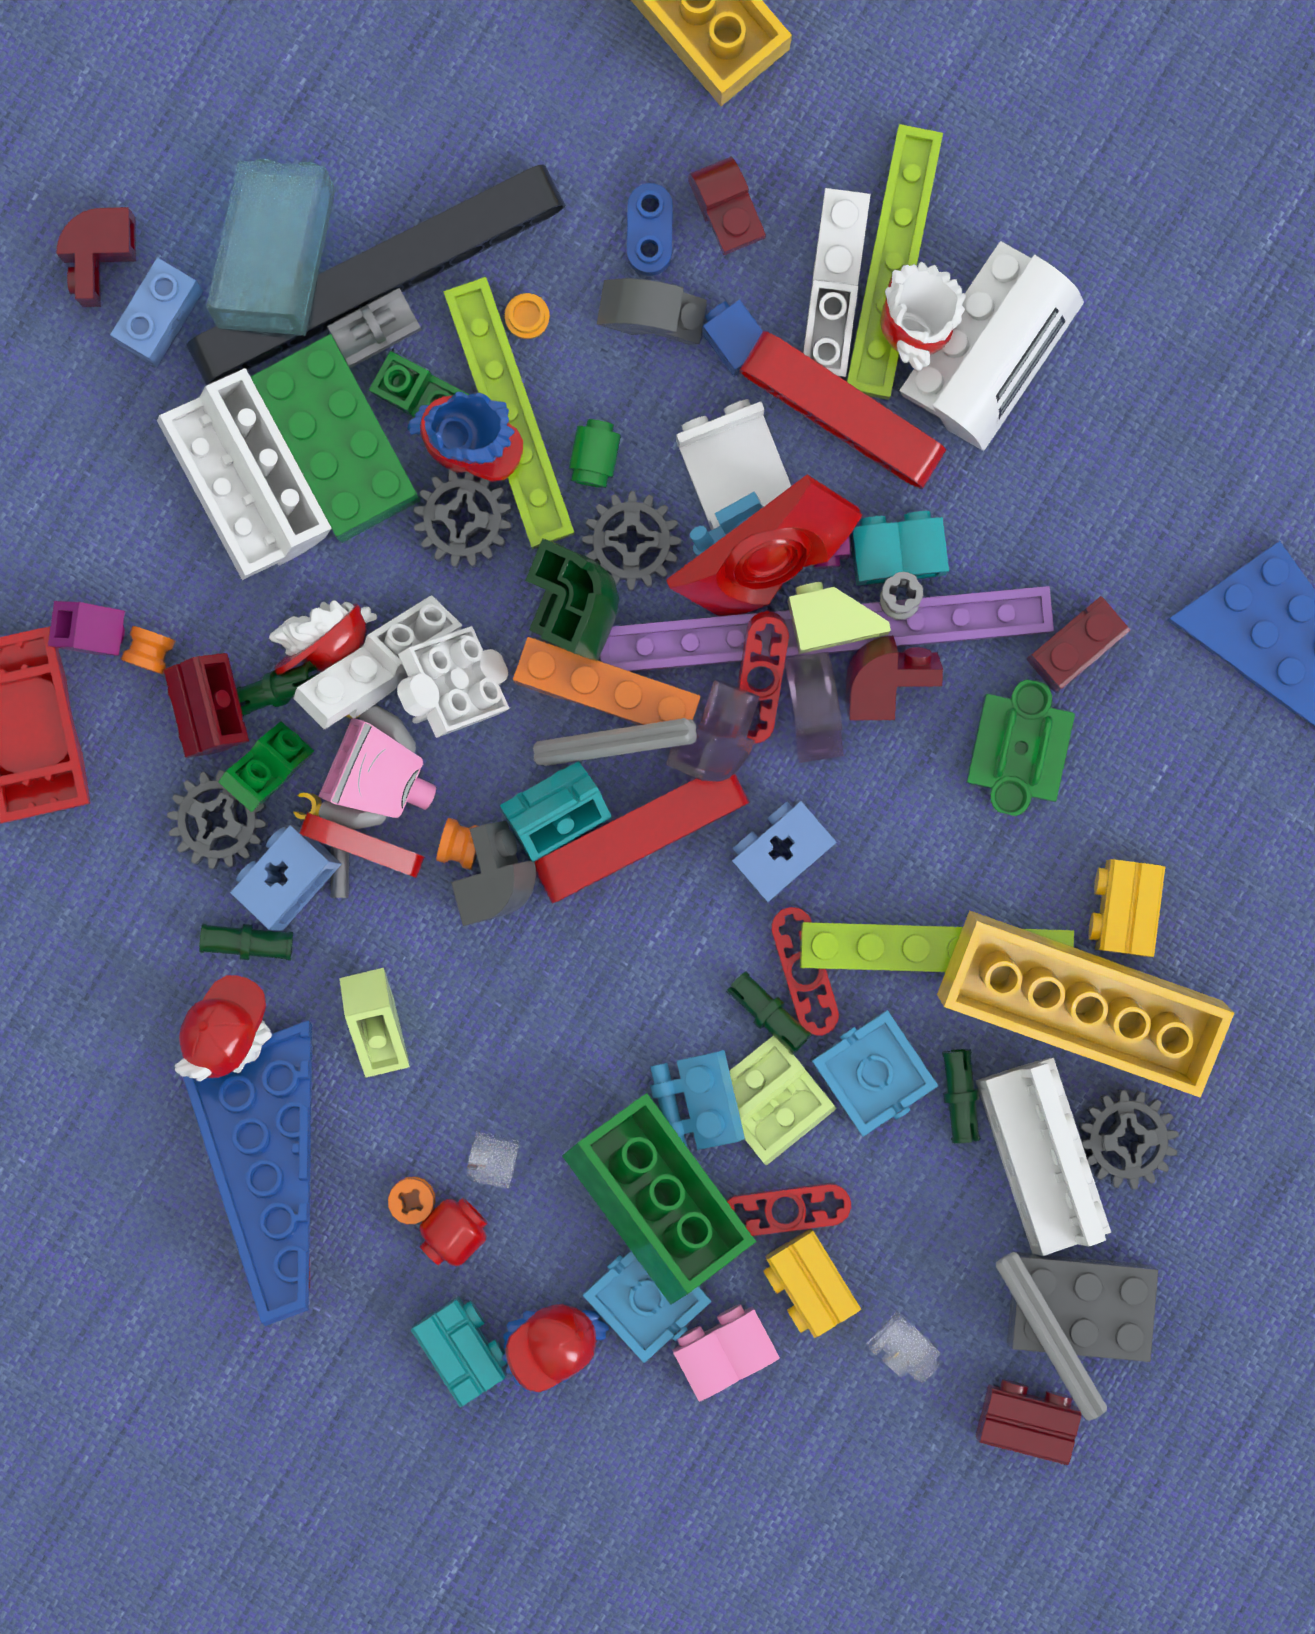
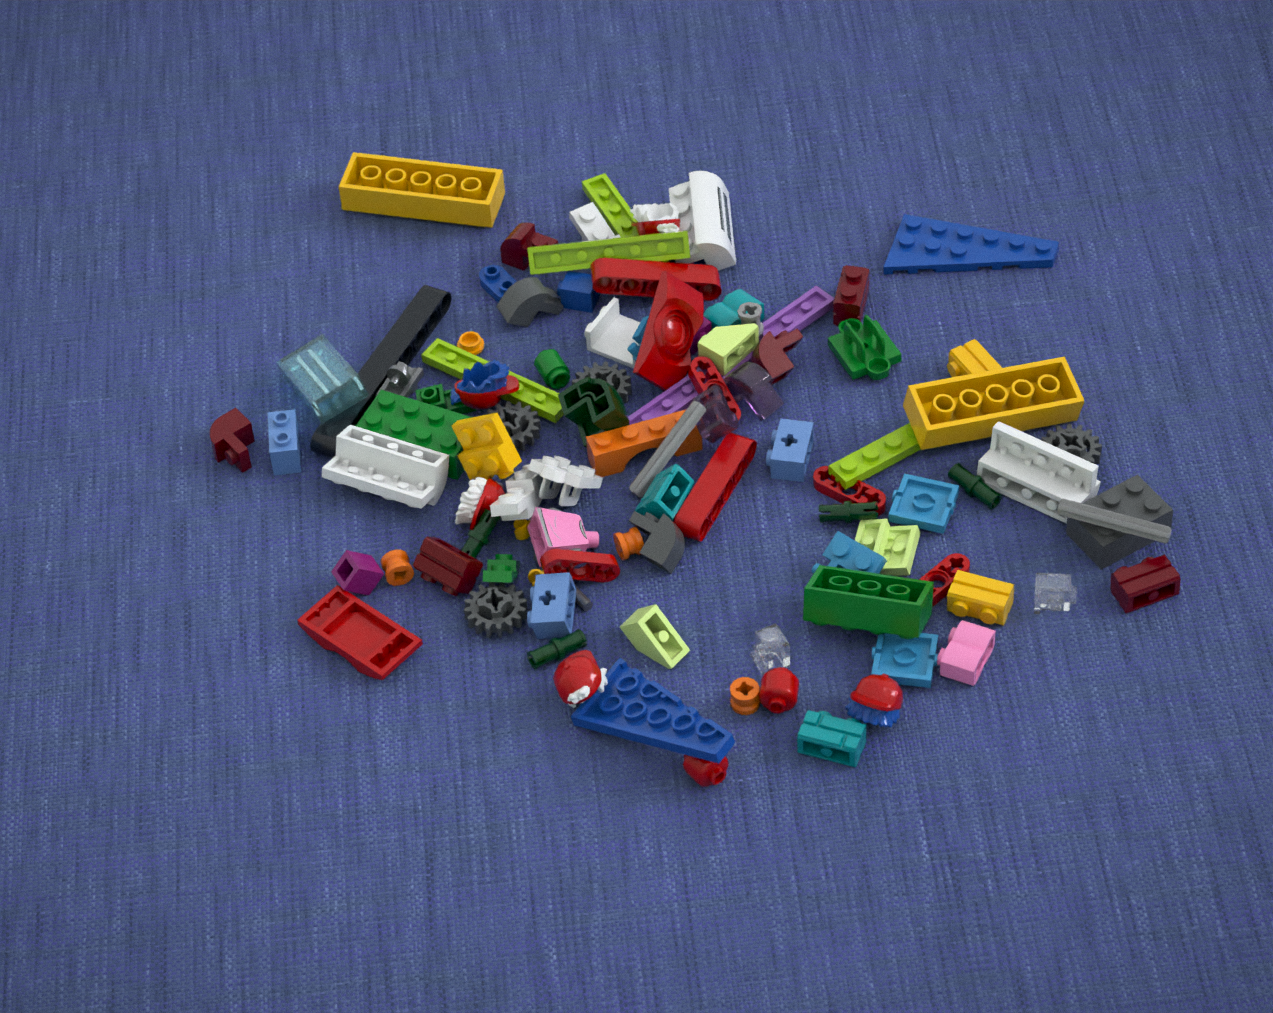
camera: 30 degrees left, 40 degrees down
(377, 565) = (486, 447): none -> yellow plate
(806, 325) = (581, 254): none -> lime plate

